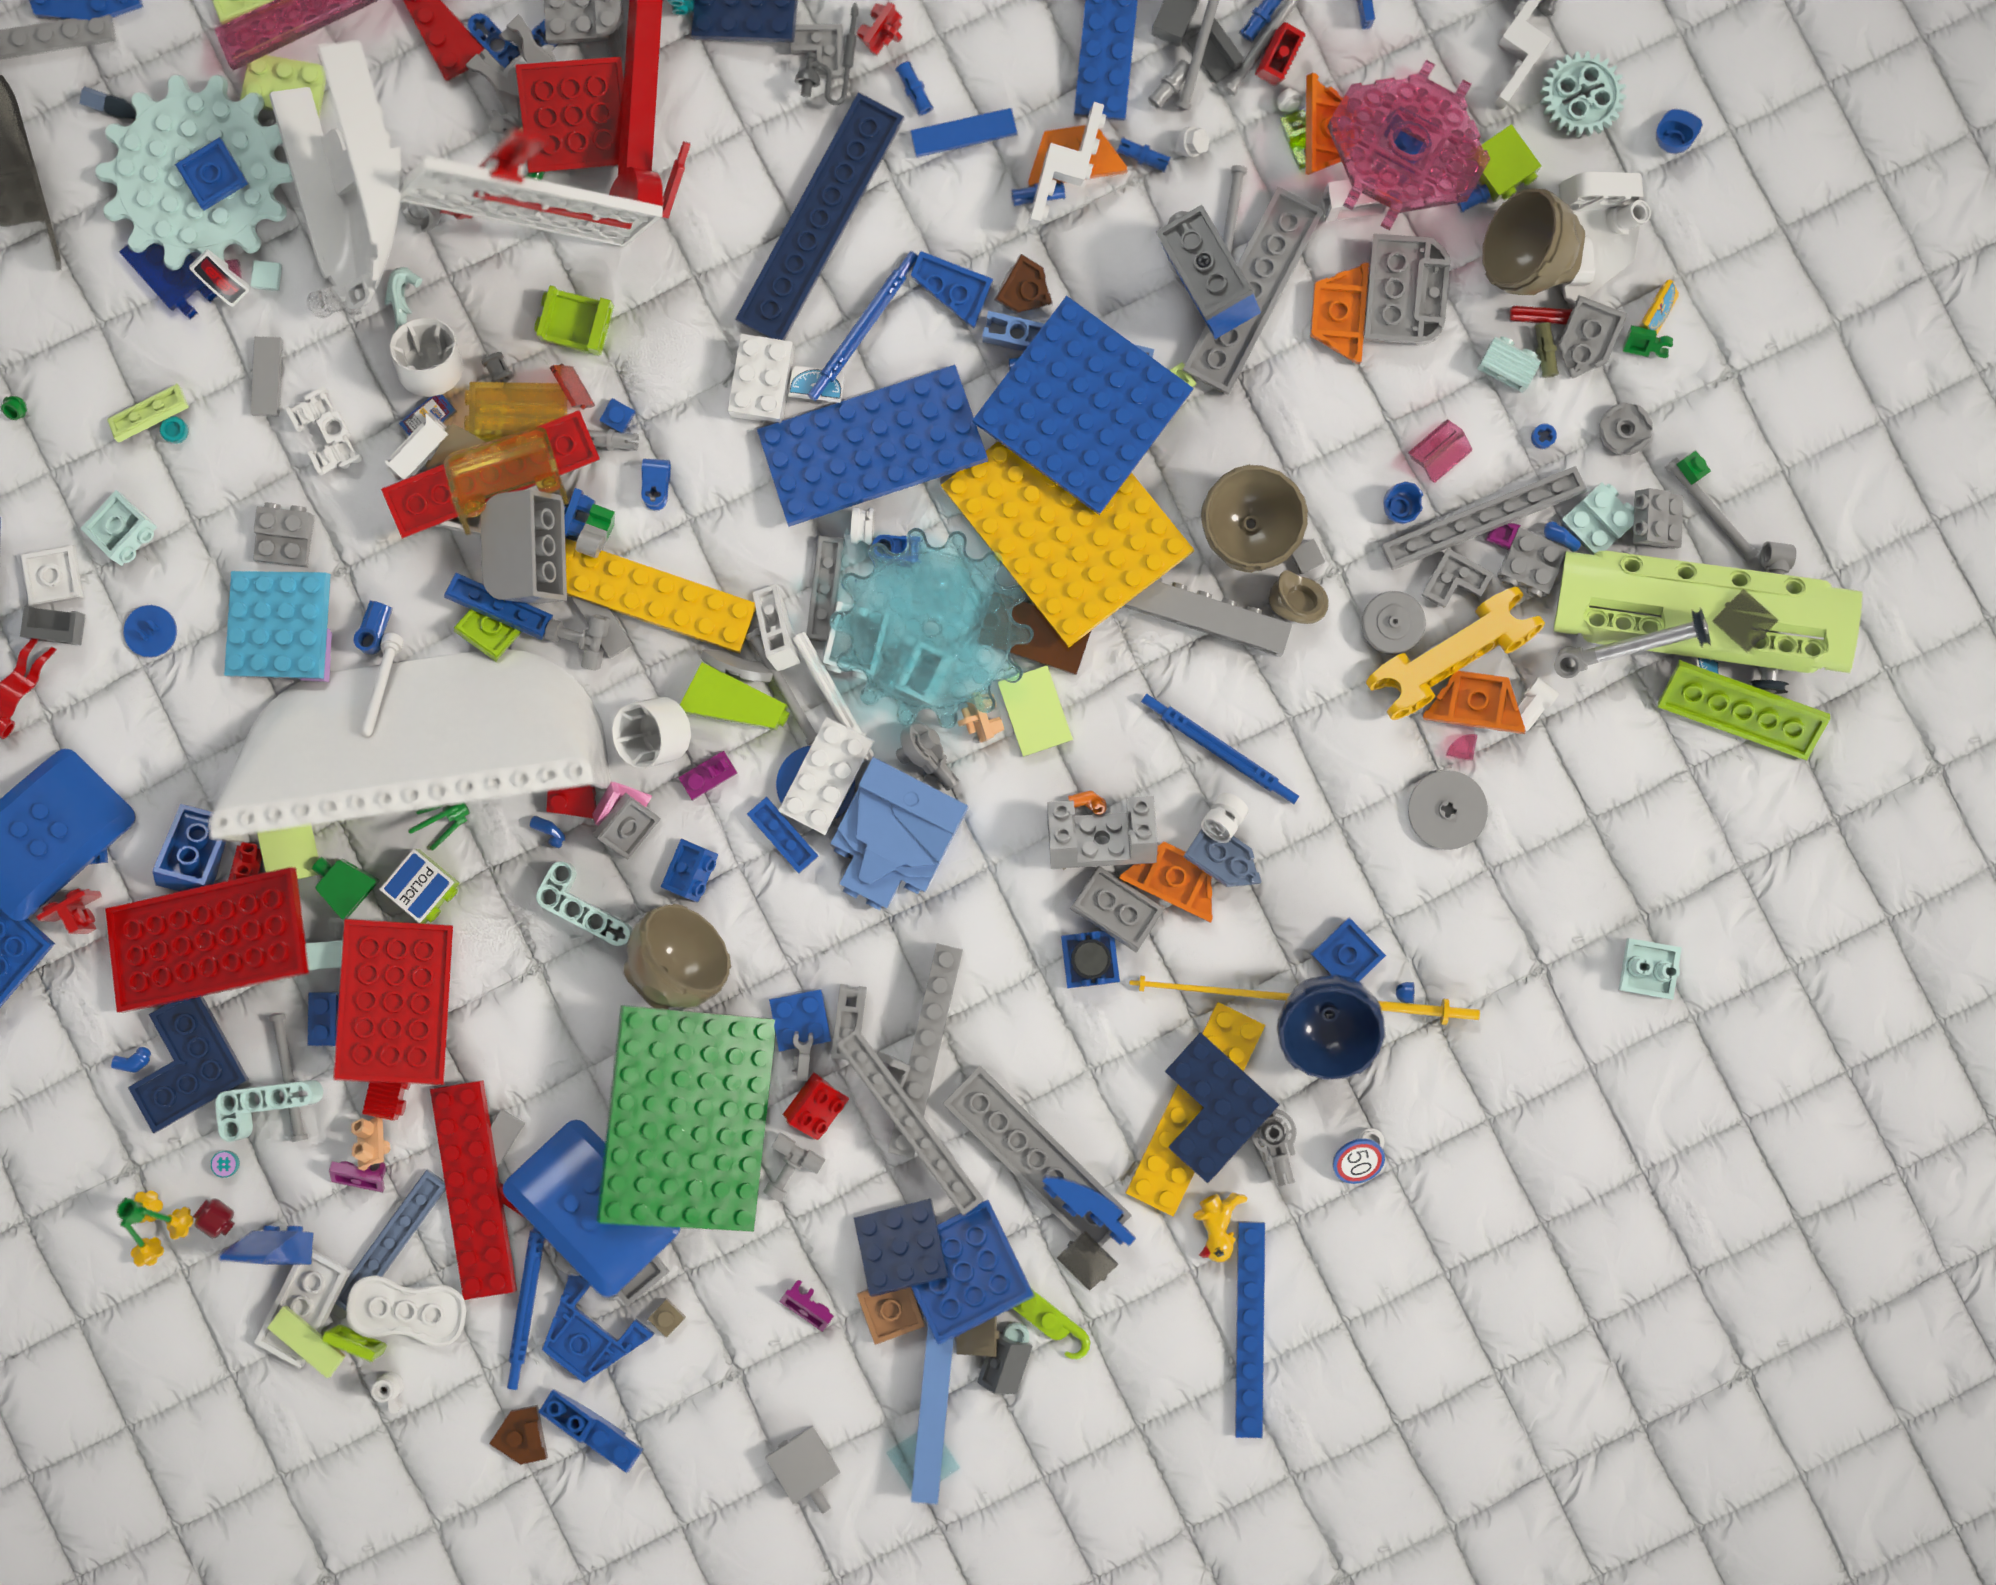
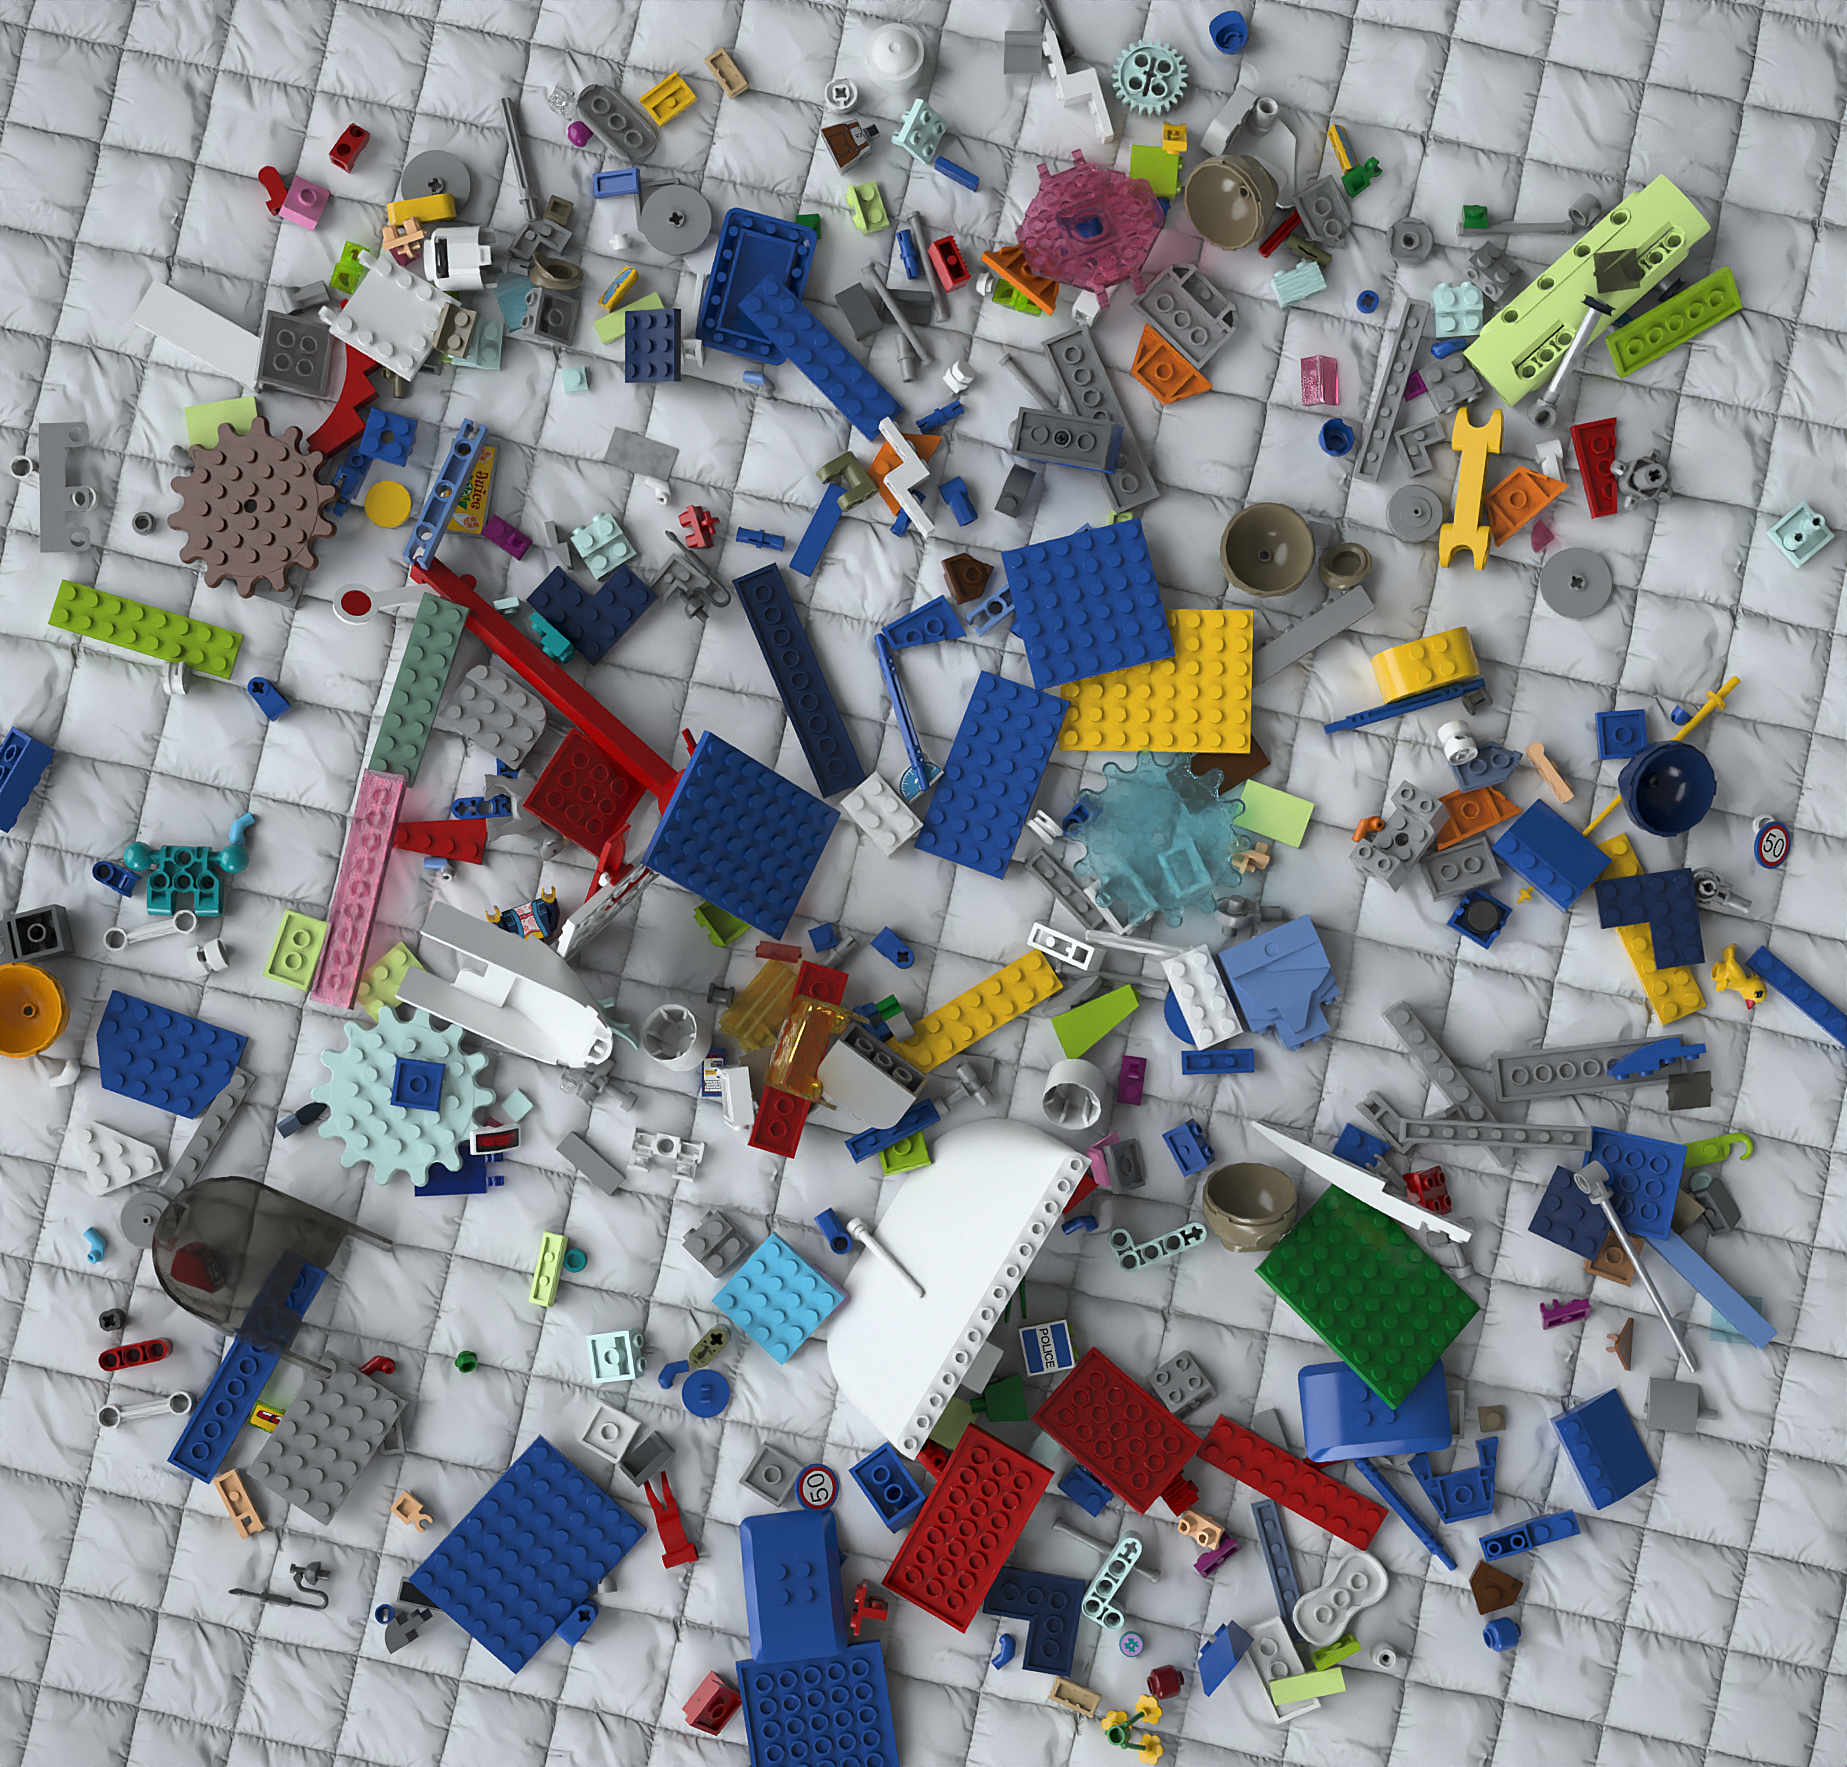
camera: 45 degrees left, 0 degrees up
(125, 741) = (771, 1474): none -> light grey plate
(140, 585) = (669, 1372): none -> blue arm
(141, 1151) = (1075, 1696): none -> tan plate
(142, 788) = (816, 1488): none -> piece
(196, 598) = (715, 1346): none -> olive connector
(342, 329) = (600, 1082): none -> light grey bar
(355, 836) = (983, 1365): none -> white brick
(417, 144) = (535, 917): none -> torso
(419, 48) = (443, 865): none -> arm
(479, 1029) = (1182, 1386): none -> light grey bracket
(486, 1475) = (1501, 1634): none -> blue head
(635, 264) = (740, 836): none -> blue plate
(718, 1436) = (1603, 1449): none -> blue slope
(774, 1040) = (1362, 1184): none -> white slope
(821, 1379) = (1623, 1344): none -> dark orange piece
(935, 1234) = (1592, 1180): none -> flat silver piece
(1037, 110) = (862, 483): none -> olive connector
(1086, 223) = (956, 496): none -> blue piece
(1132, 267) = (1015, 490): none -> dark grey brick
(1193, 977) = (1551, 855): none -> blue slope
(1265, 917) = (1548, 771): none -> light nougat plate
(1269, 736) = (1425, 664): none -> yellow brick
(1275, 807) = (1477, 700): none -> dark grey bush
(1546, 153) = (1174, 138): none -> yellow plate
(1570, 740) = (1595, 453): none -> red wing
(1583, 793) = (1641, 479): none -> light grey piece

